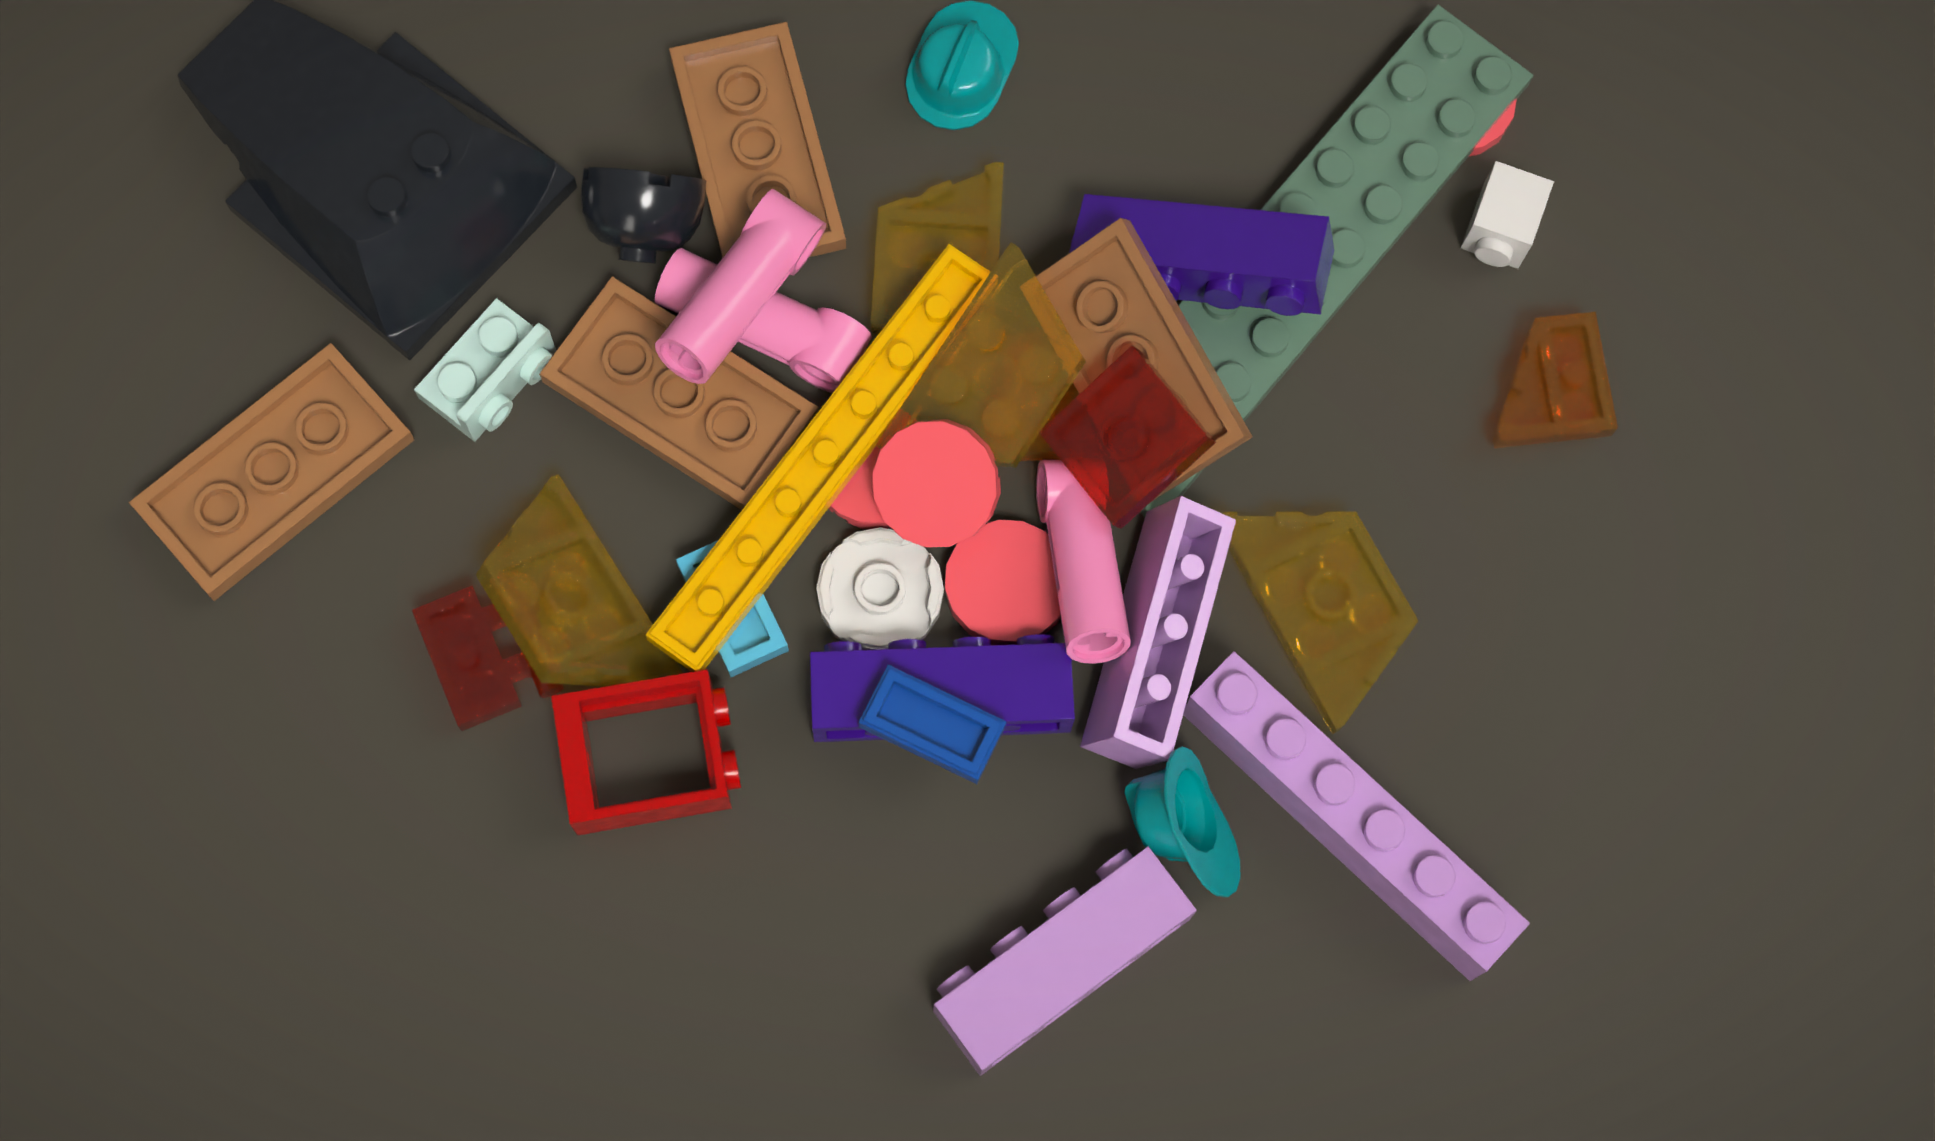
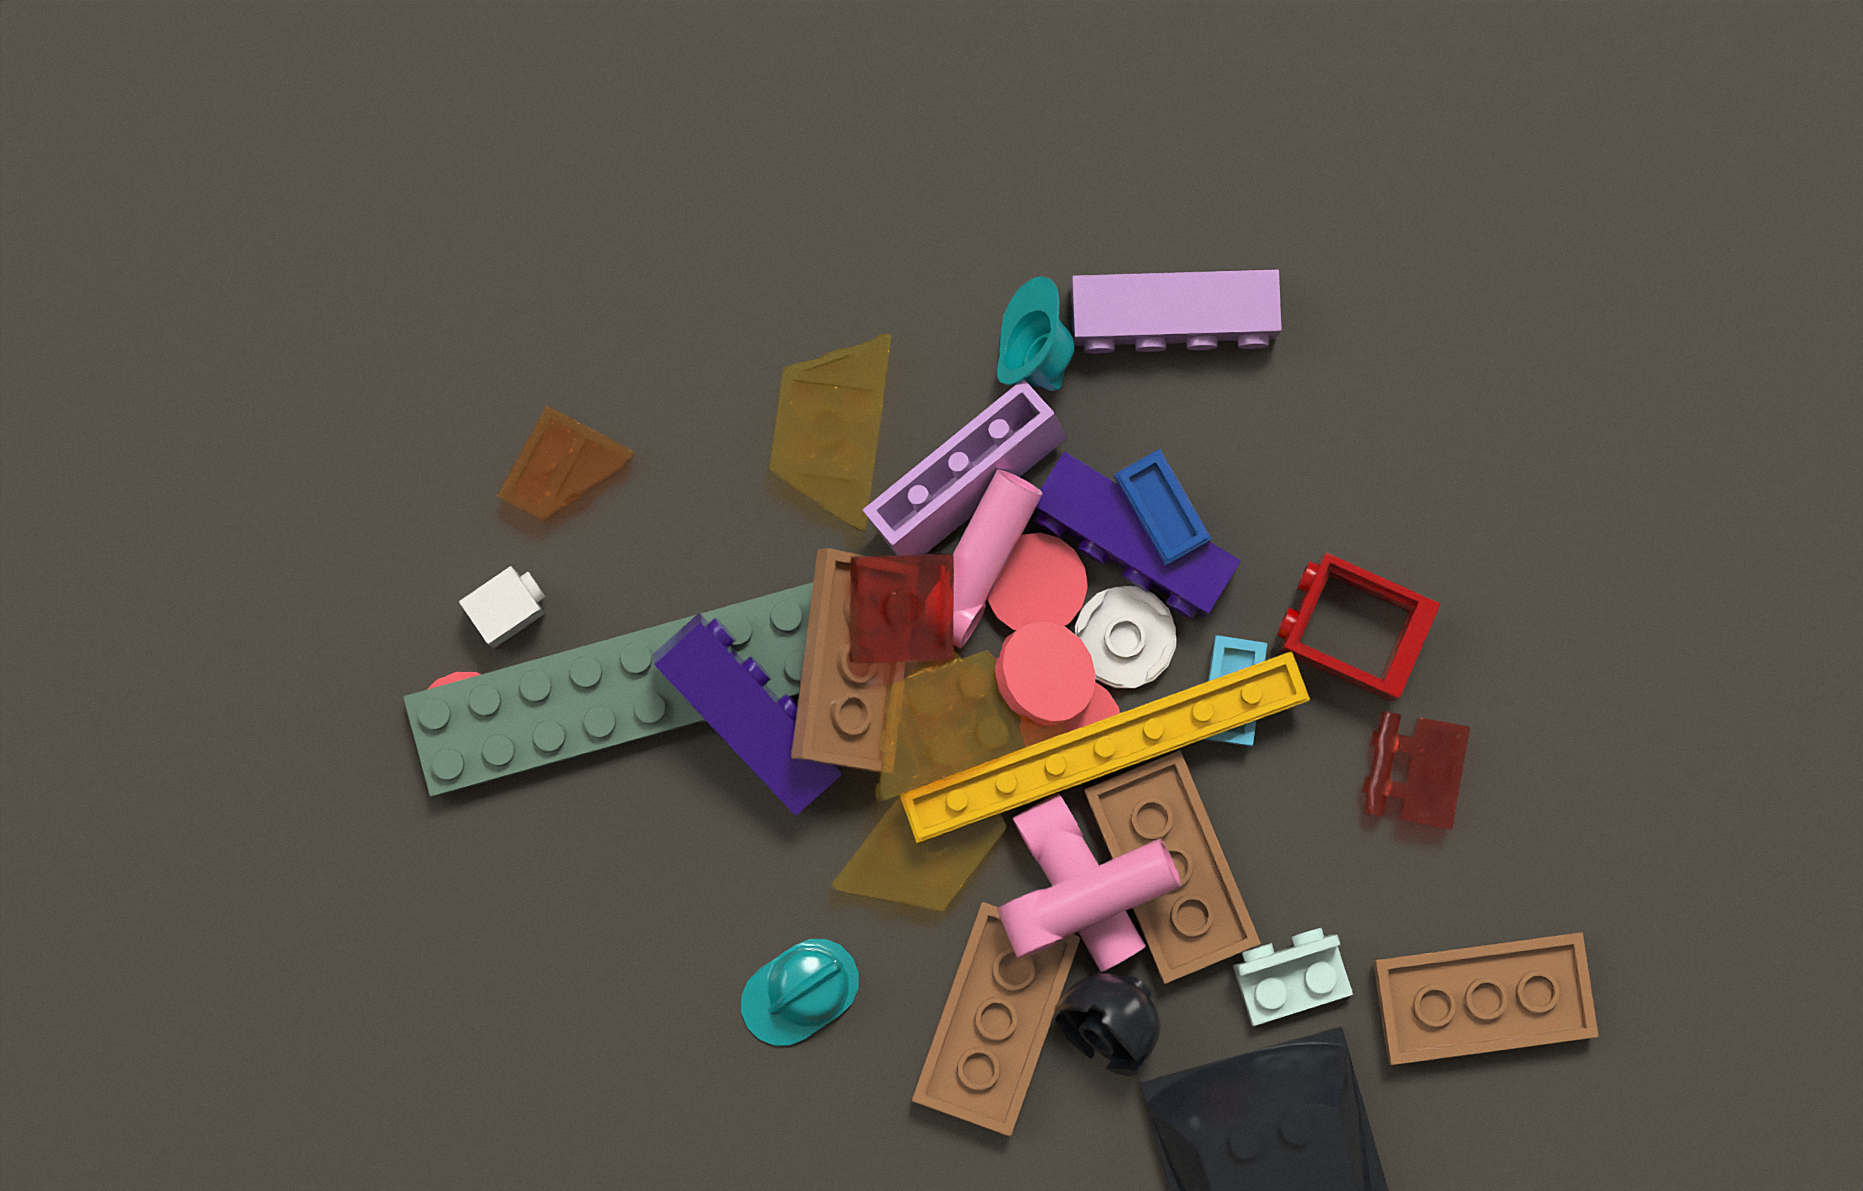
camera: 145 degrees left, 10 degrees up
(569, 599) = (1341, 766): clear yellow wing -> none
(1354, 817) = (923, 271): lavender brick -> none

